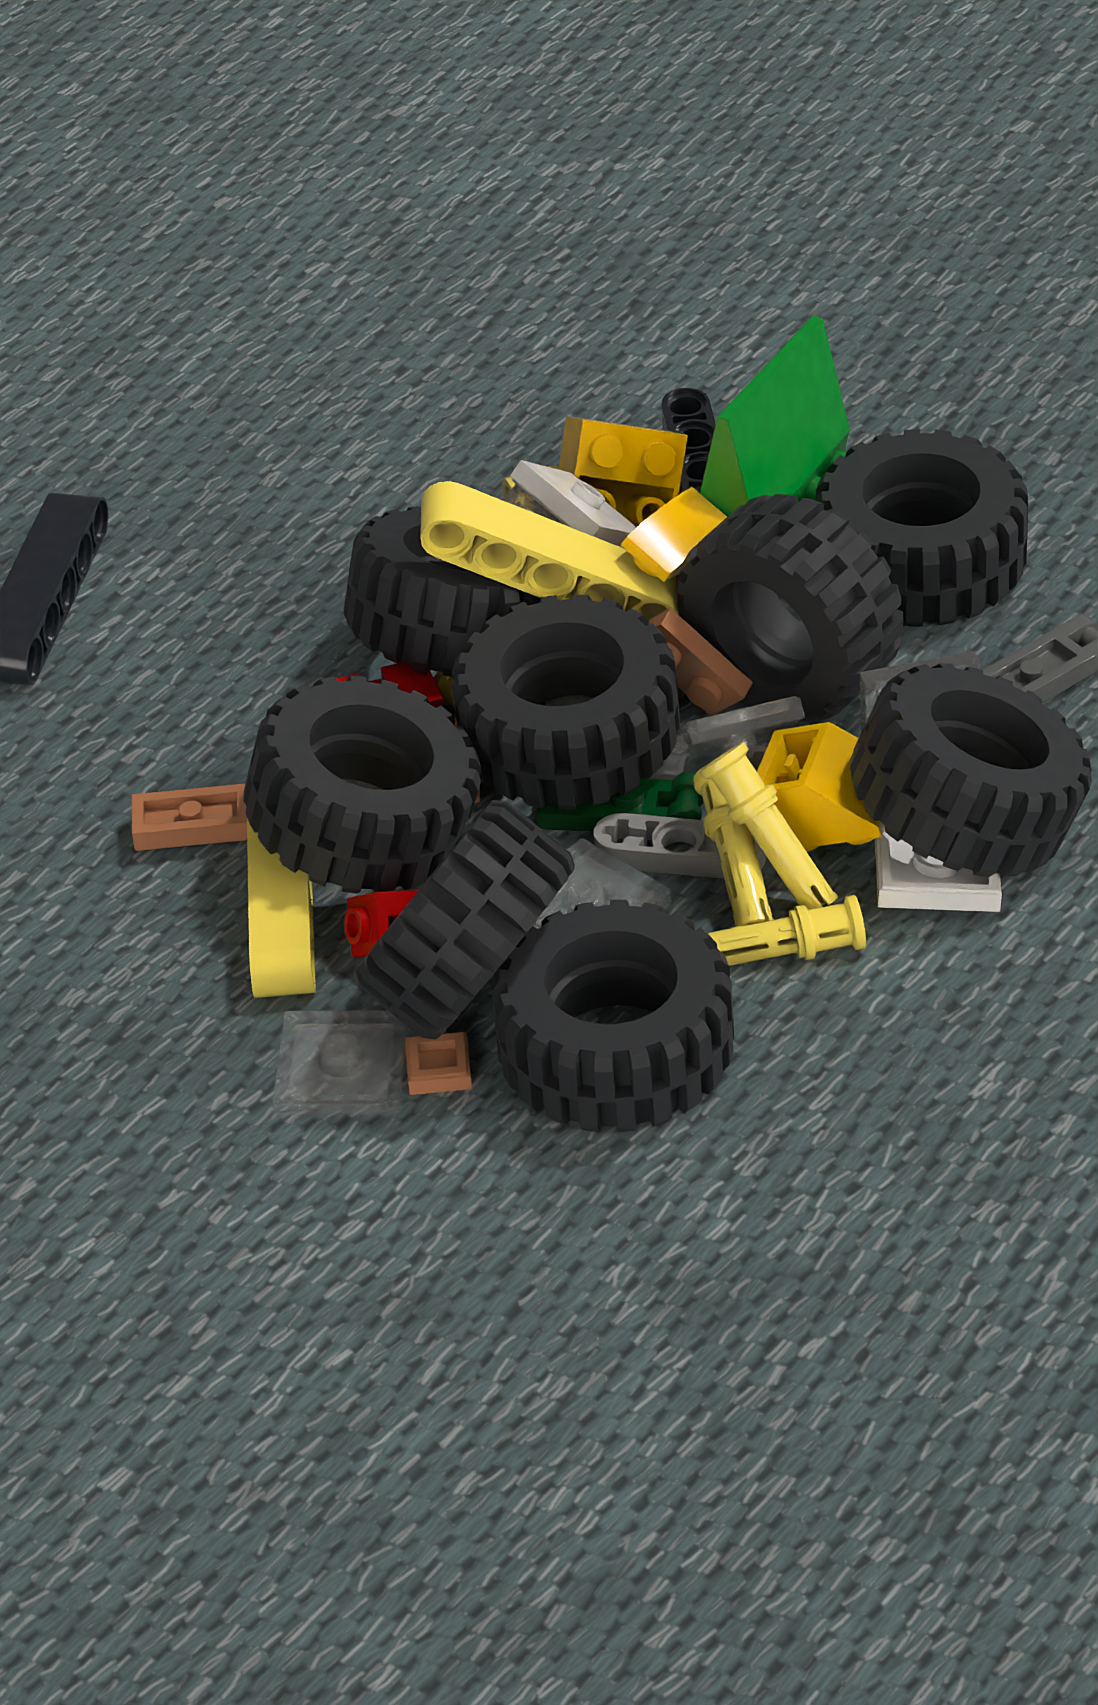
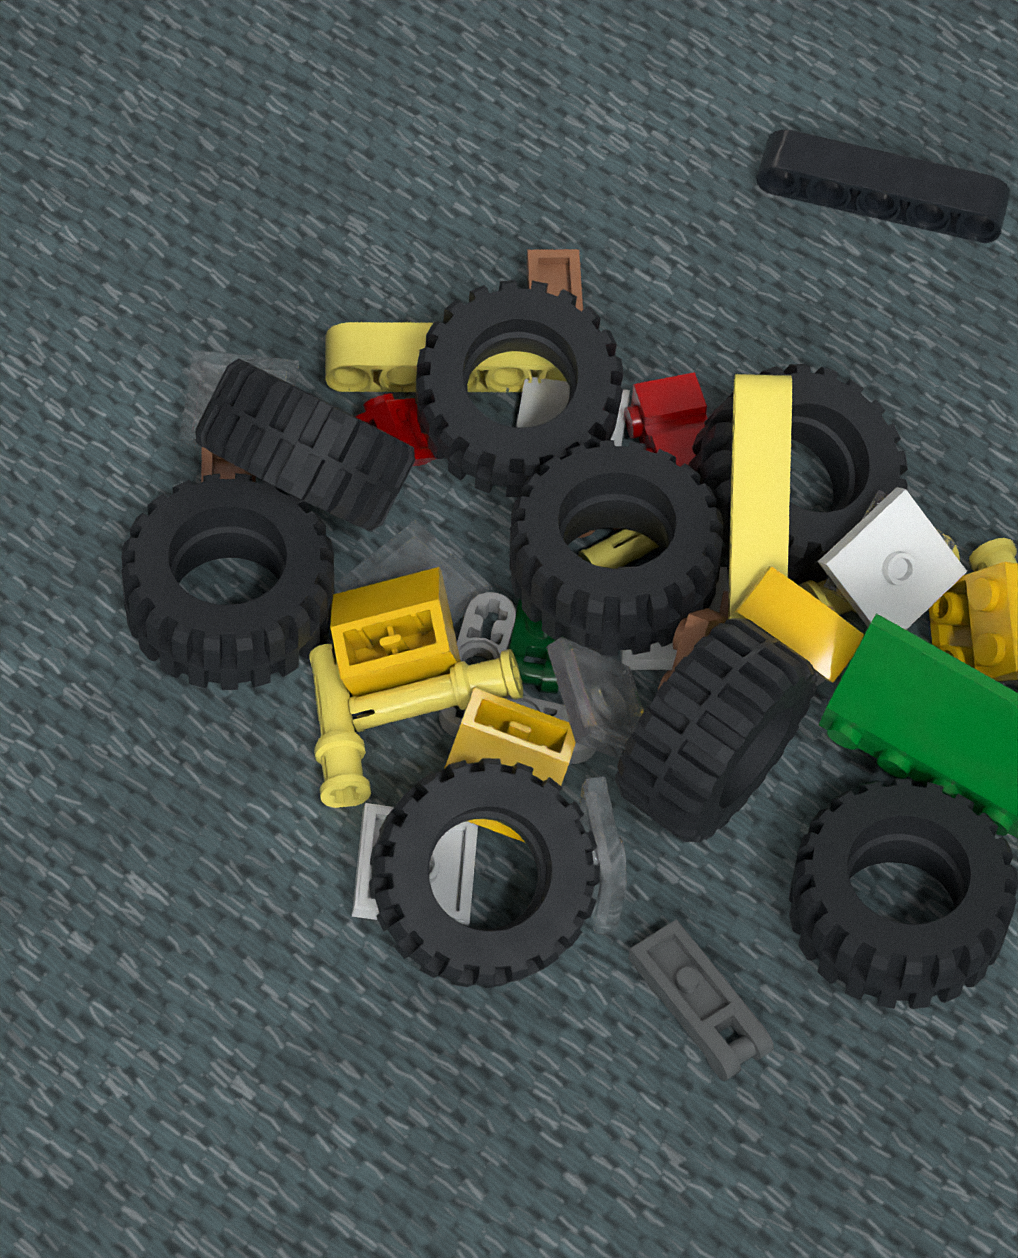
camera: 85 degrees right, 15 degrees up
(673, 859) = (393, 632): none -> yellow slope
(754, 806) = (444, 687): light yellow pin -> none

